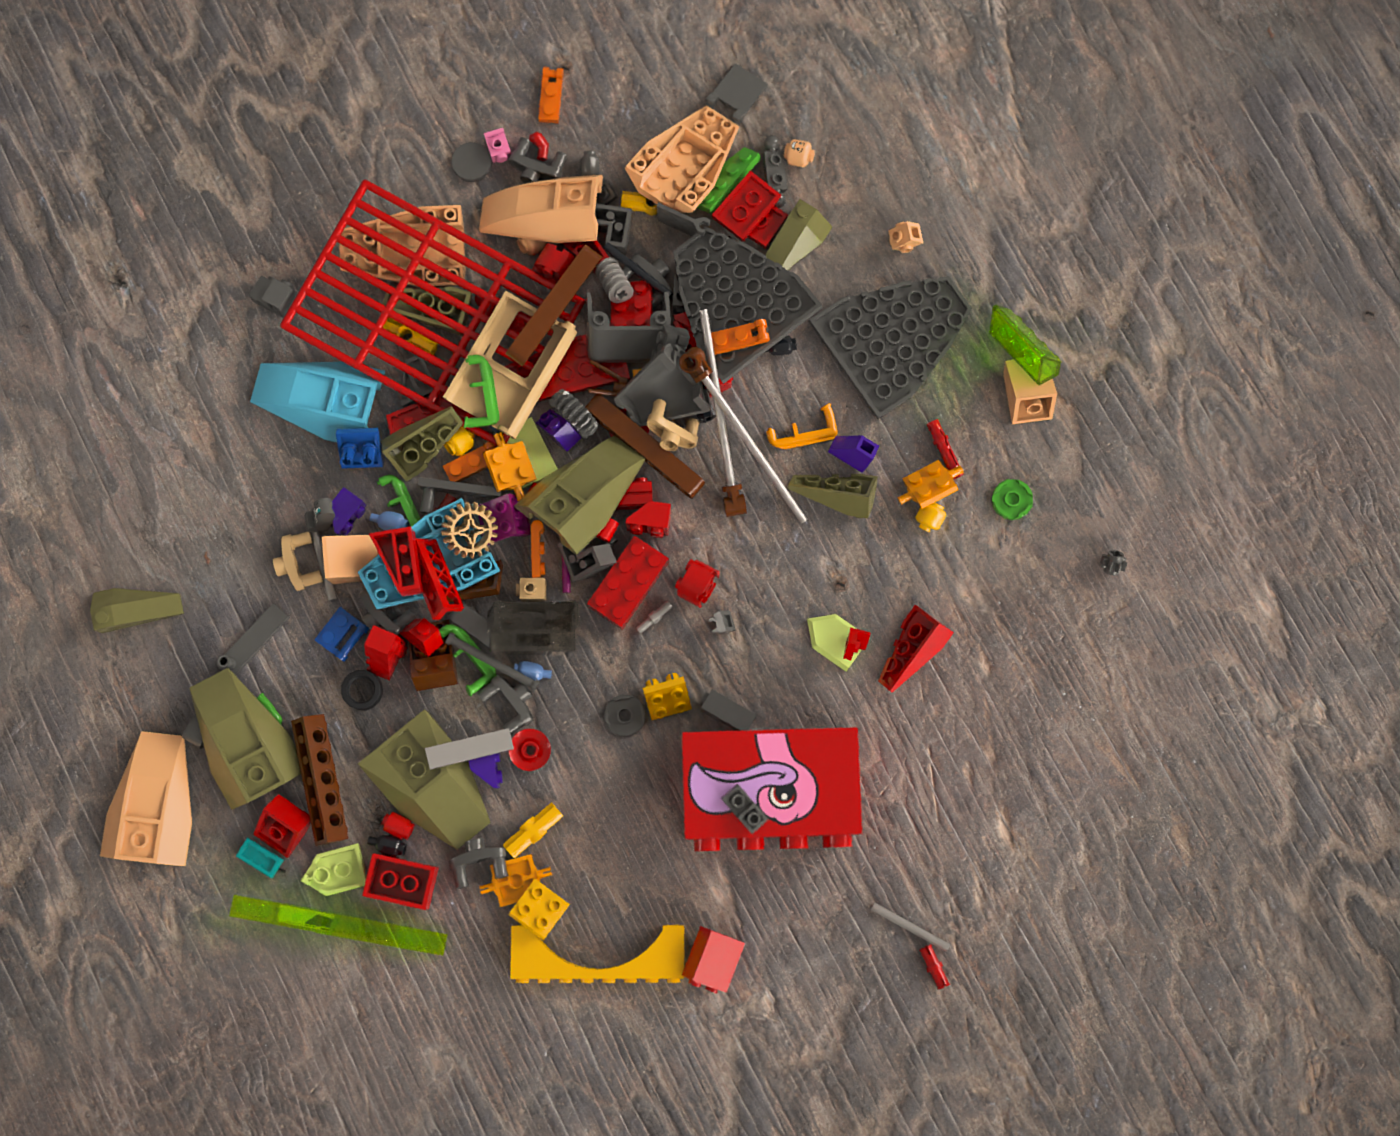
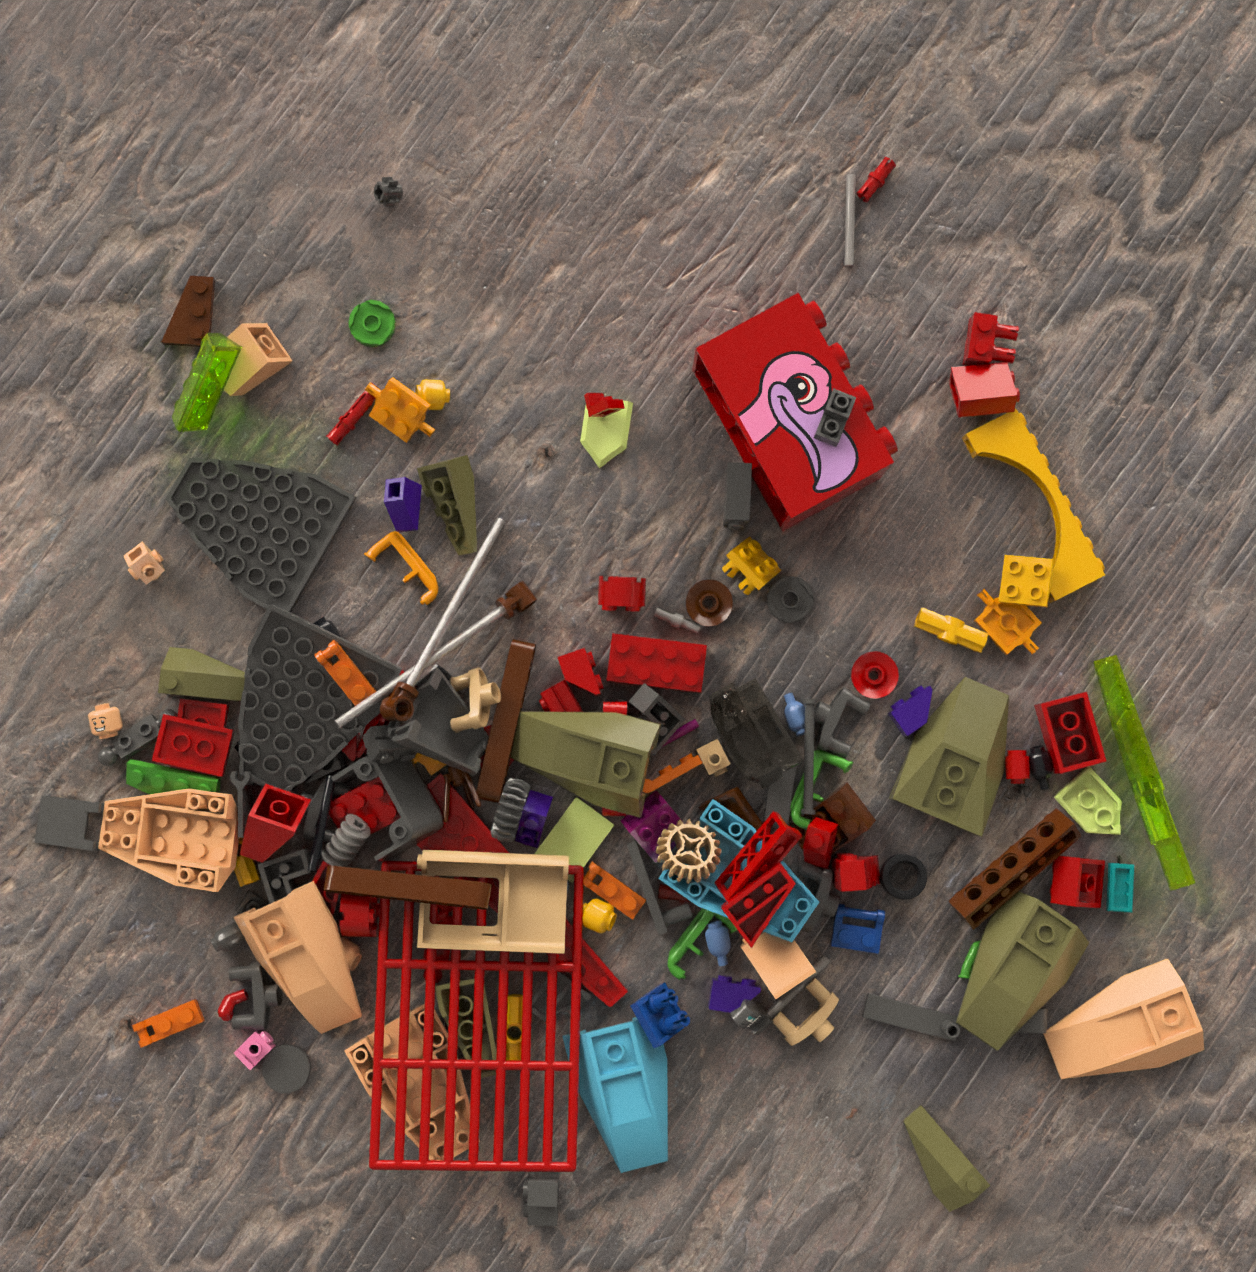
camera: 115 degrees left, 5 degrees up
(418, 443) = (625, 957): olive wedge -> none
(469, 748) = (908, 732): light grey tile -> none
(474, 854) = (1003, 673): dark grey connector -> none
(489, 394) = (534, 907): bright green piece -> none
(509, 466) = (599, 847): light orange plate -> none
(650, 638) = (713, 591): none -> reddish brown dish
(657, 233) = (272, 822): none -> red slope
(723, 621) = (646, 547): dark grey tile -> none
(761, 987) = (980, 340): none -> red brick
(917, 644) = (569, 345): red wedge -> none
(1086, 366) = (193, 313): none -> reddish brown wing

